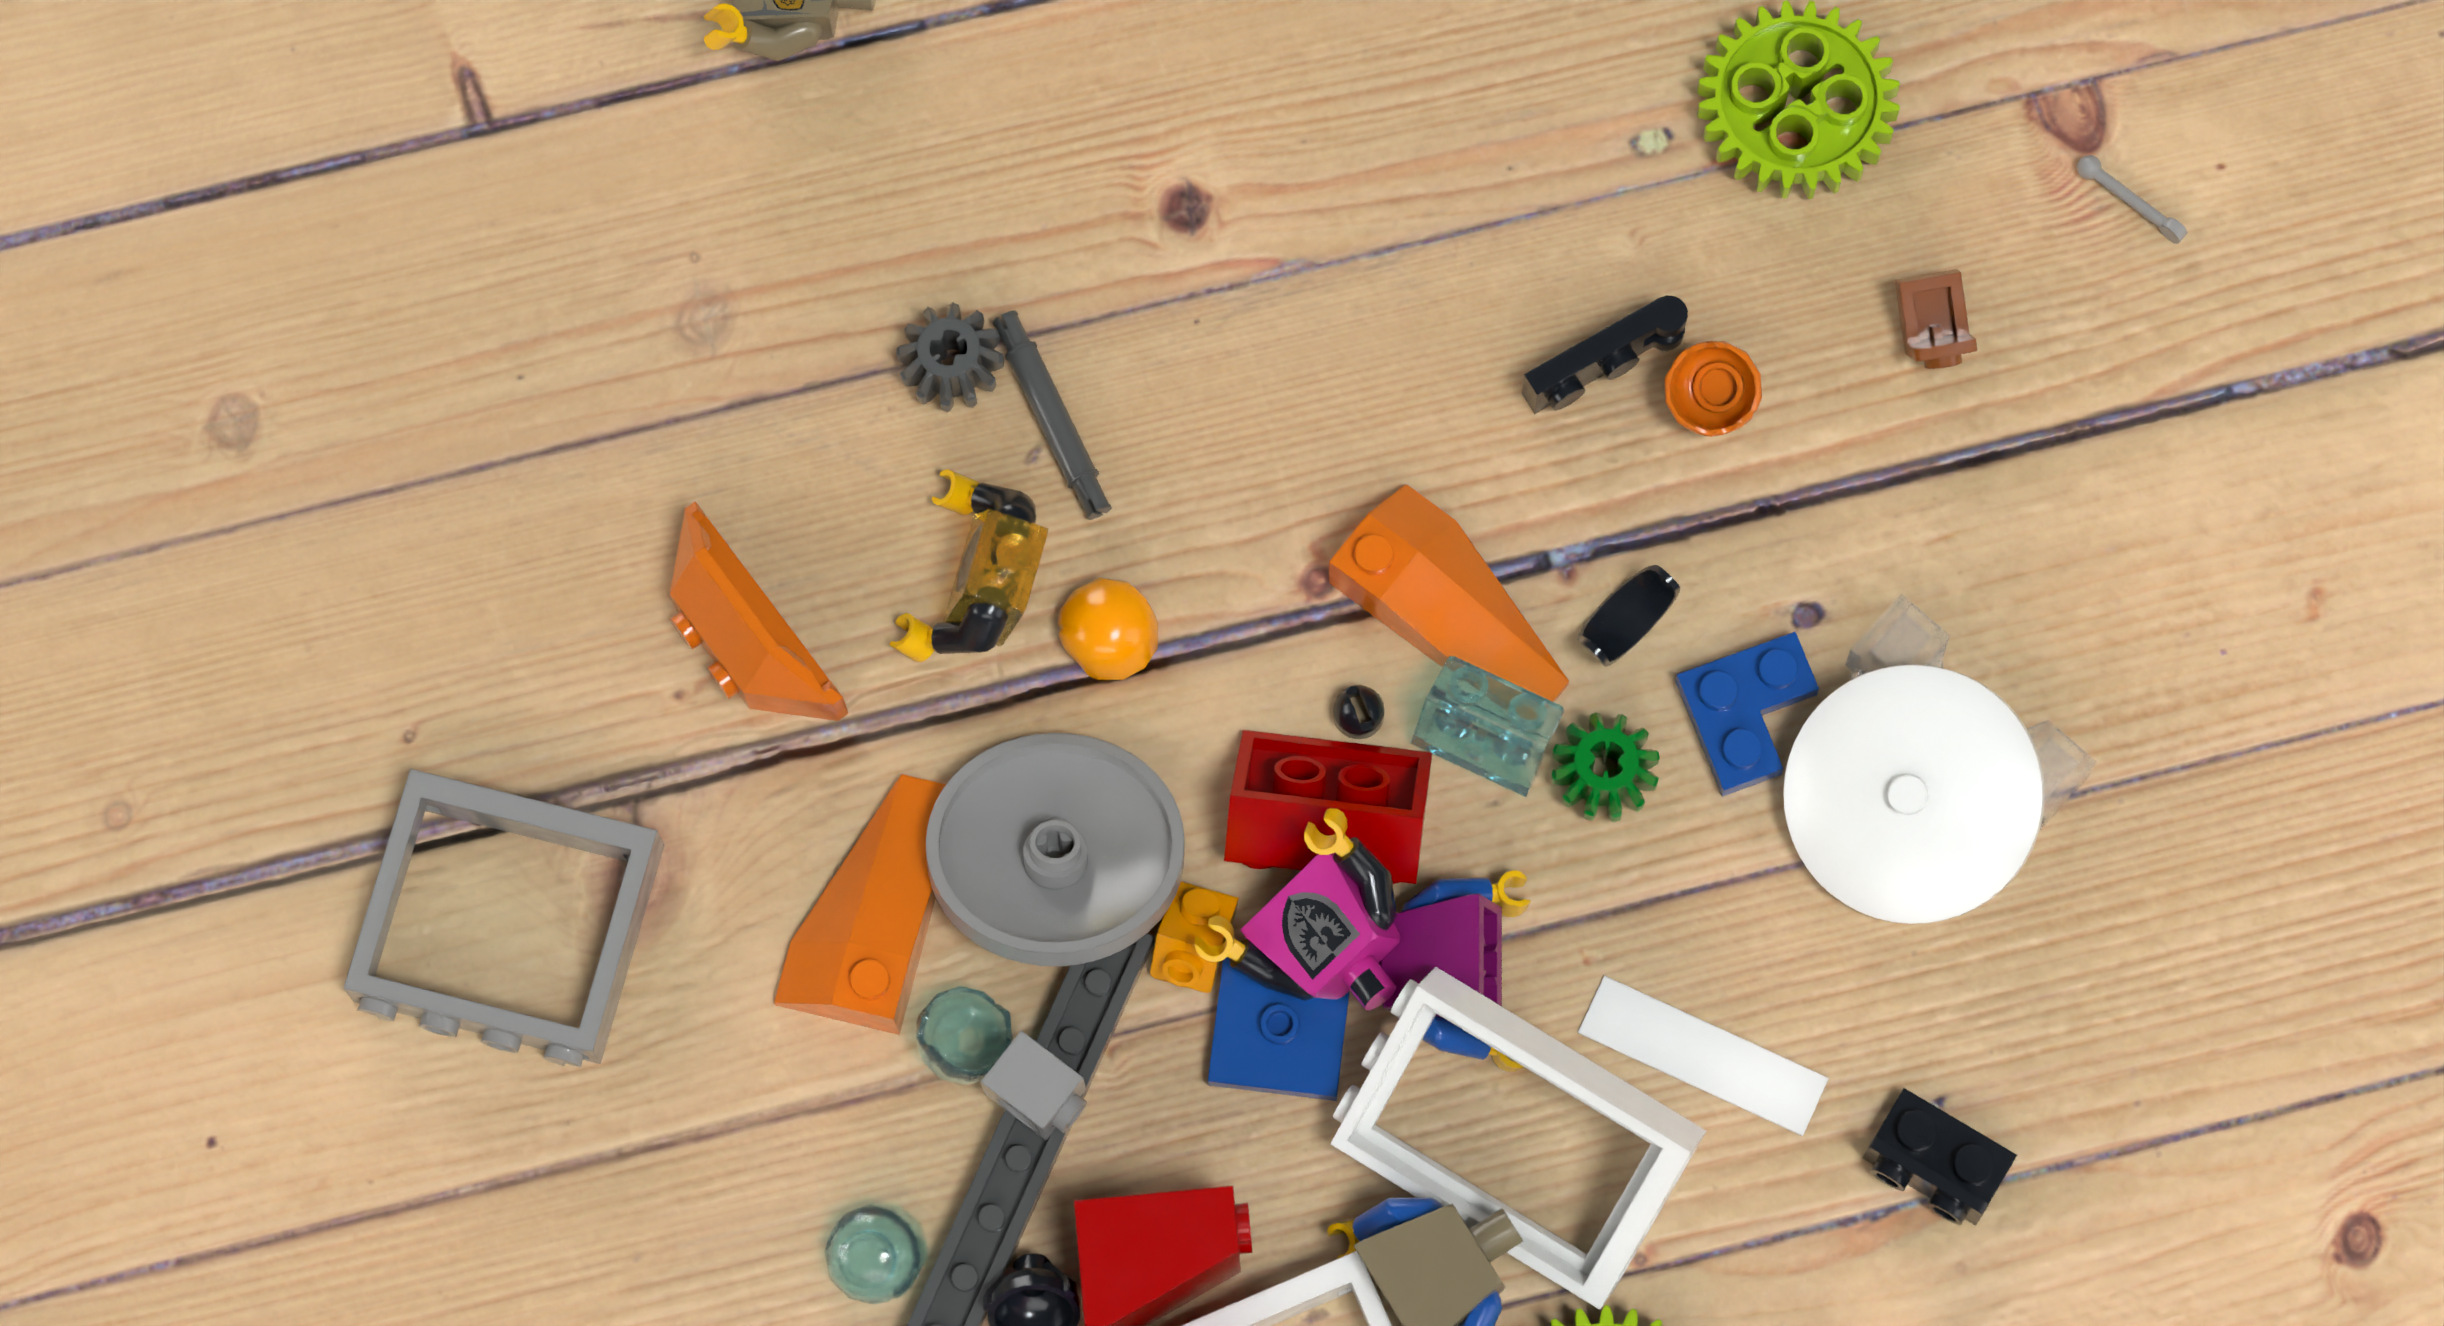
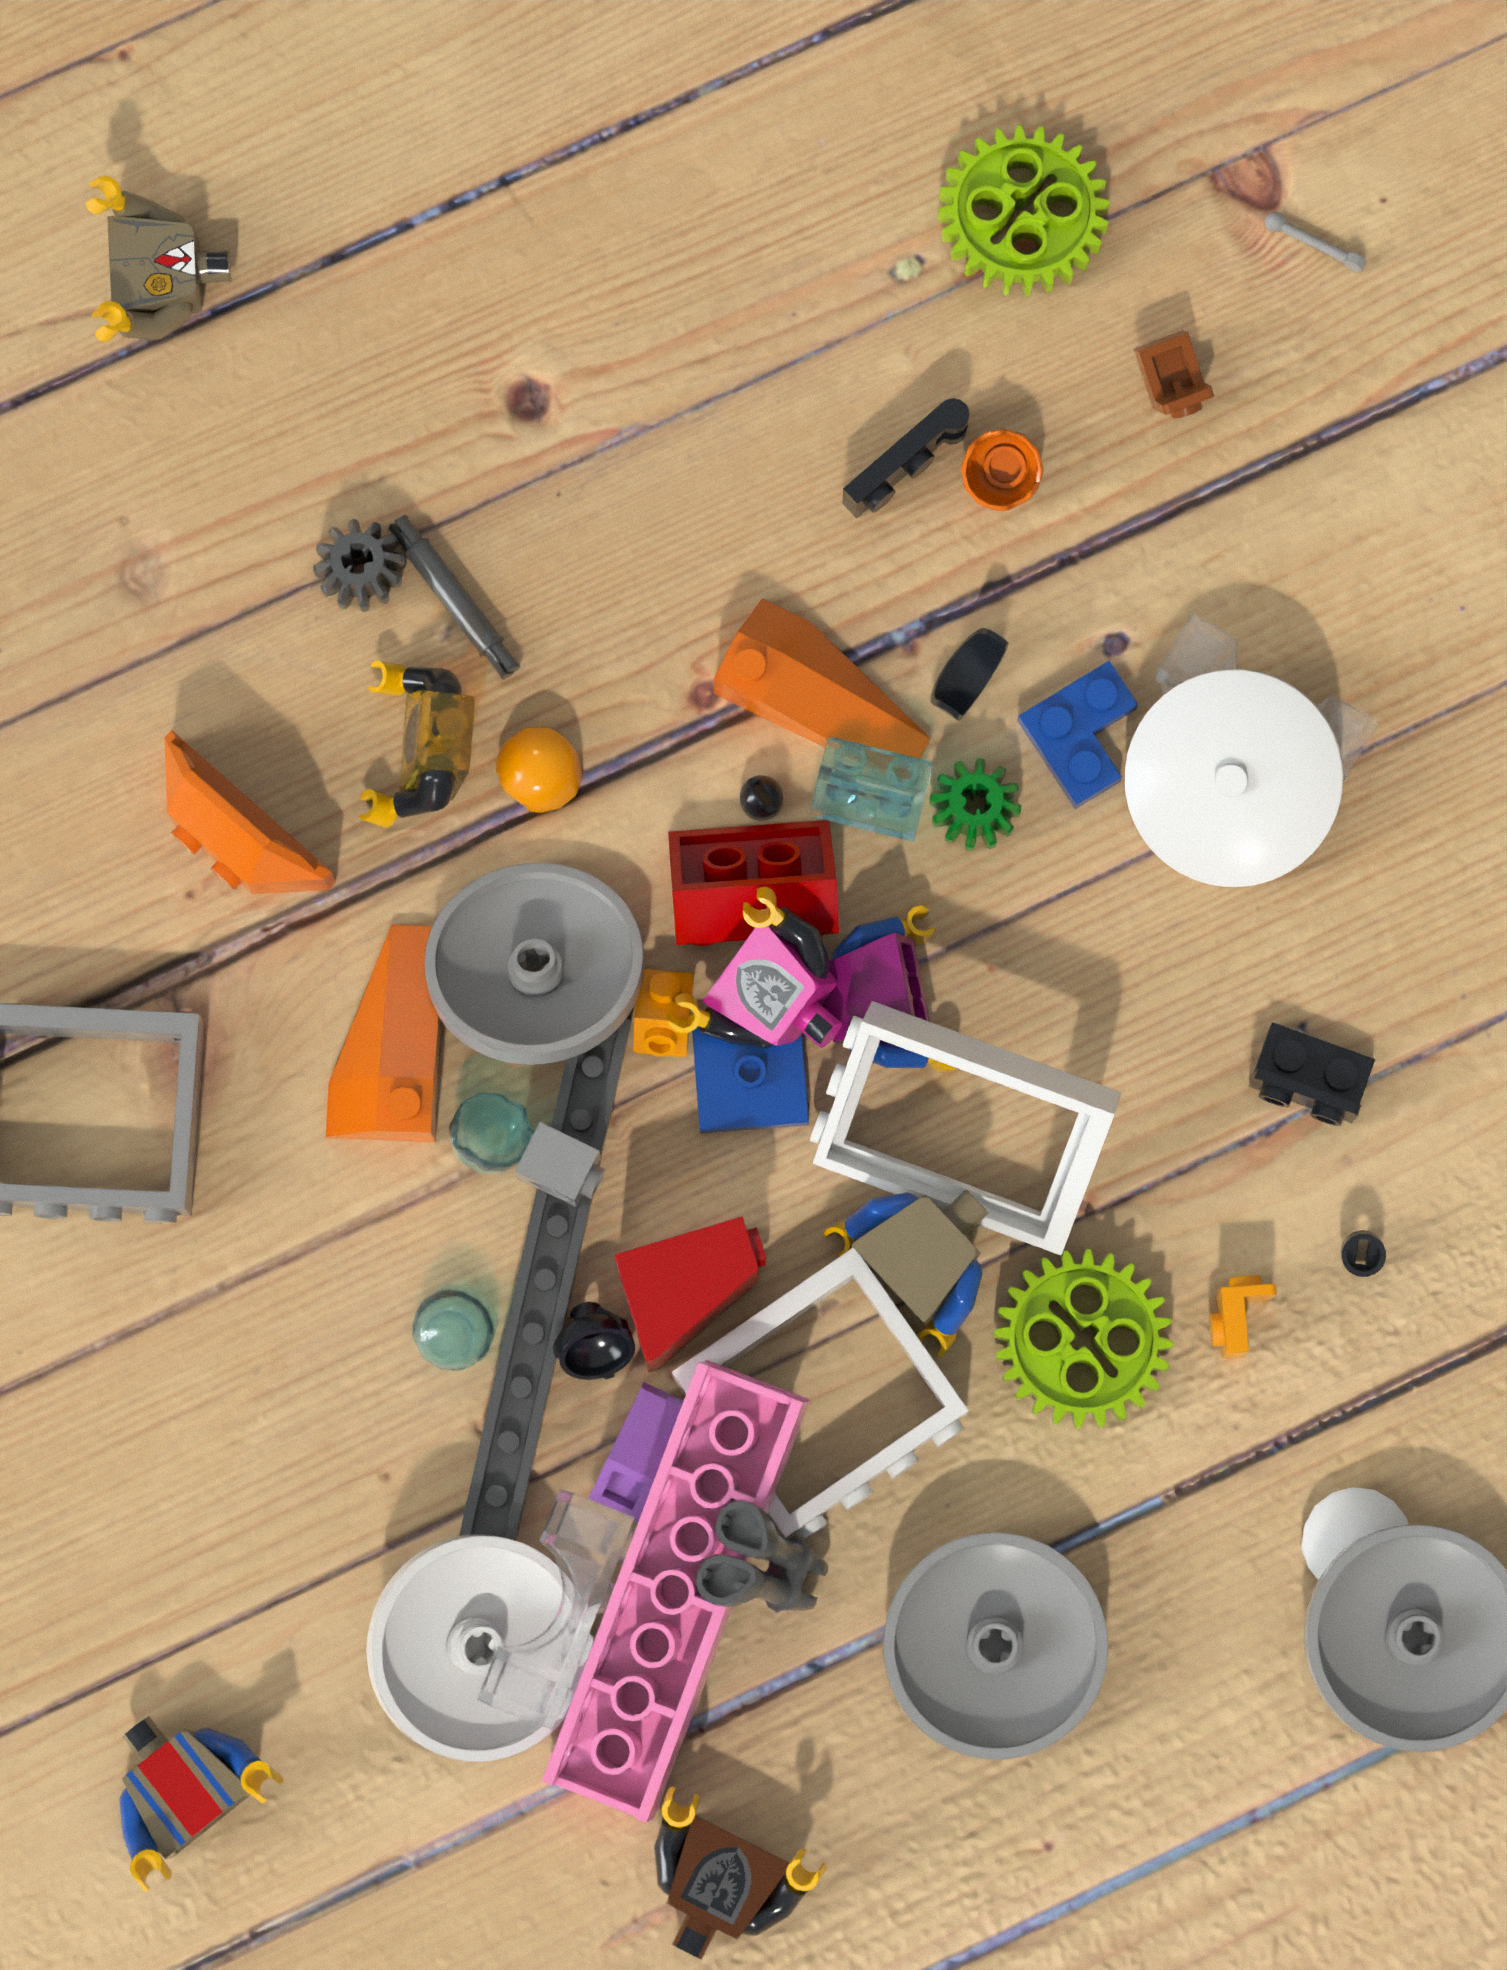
camera: 15 degrees left, 5 degrees up
(1703, 1055) = (1102, 1027): white sticker -> none

